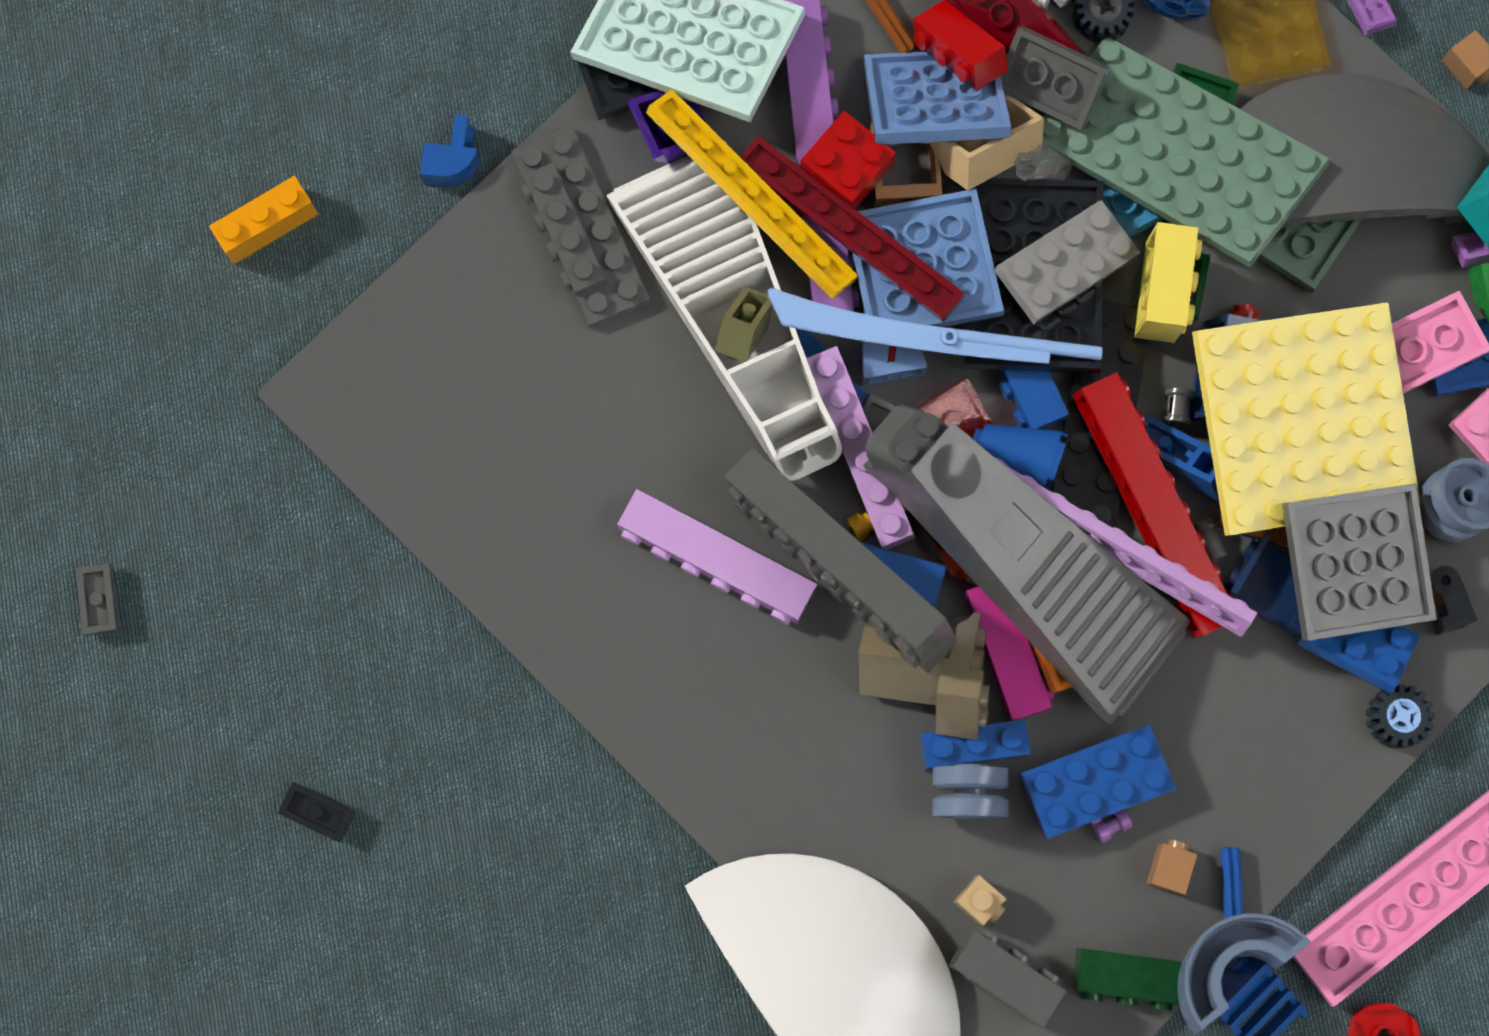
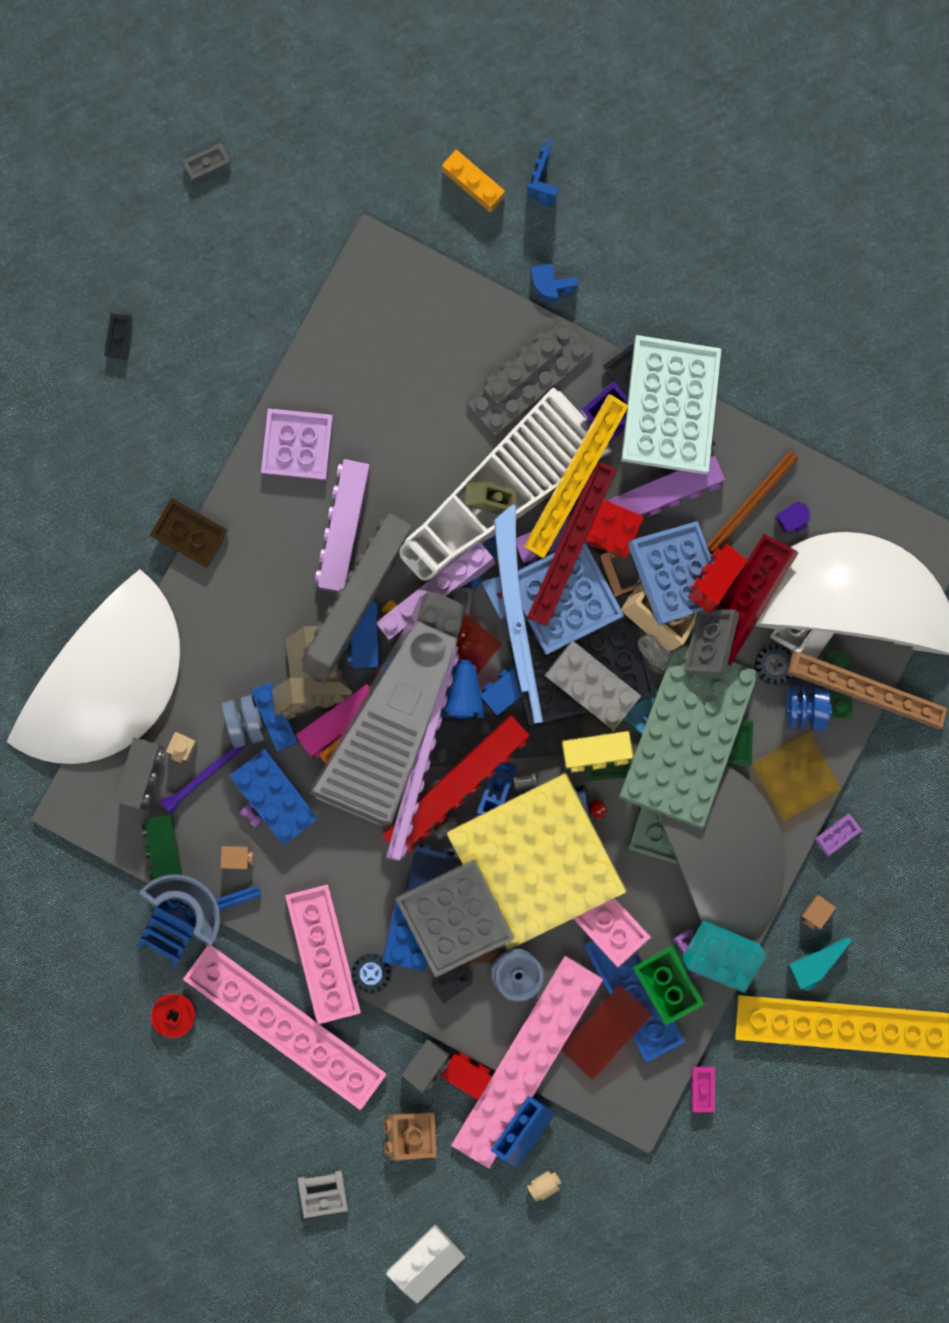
camera: 75 degrees right, 5 degrees up
(312, 128) = (543, 193): none -> blue plate
(570, 590) = (296, 444): none -> lavender plate
(653, 792) = (189, 533): none -> dark brown plate
(1059, 940) = (172, 802): none -> dark purple piece
(1352, 780) = (322, 954): none -> bright pink plate

